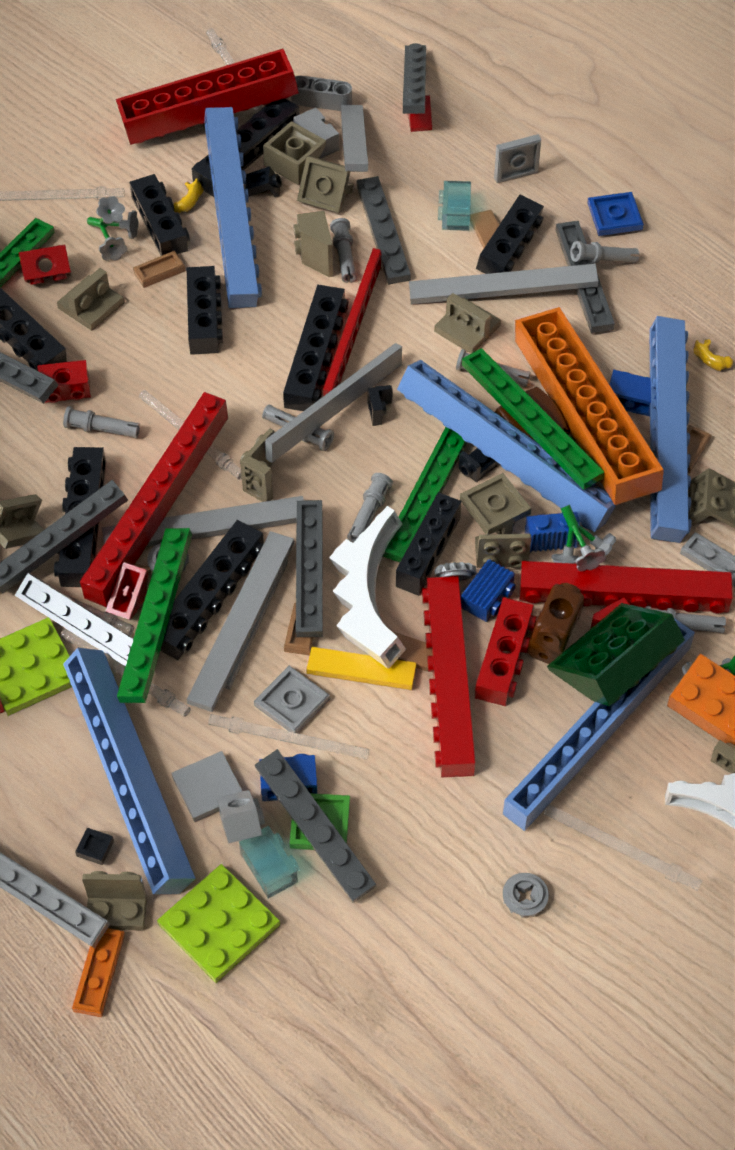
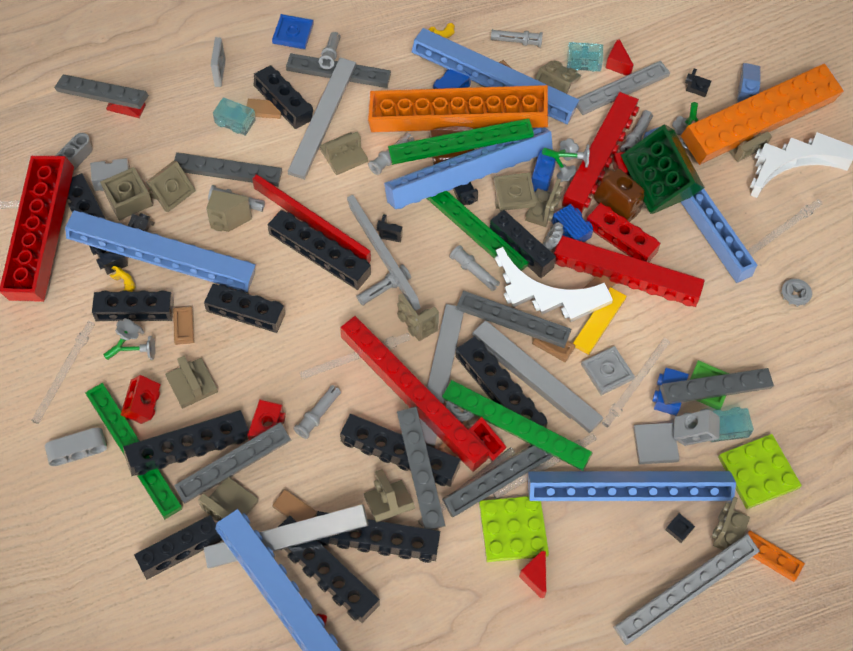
camera: 70 degrees left, 5 degrees up
(354, 138) = (139, 149): light grey tile -> none

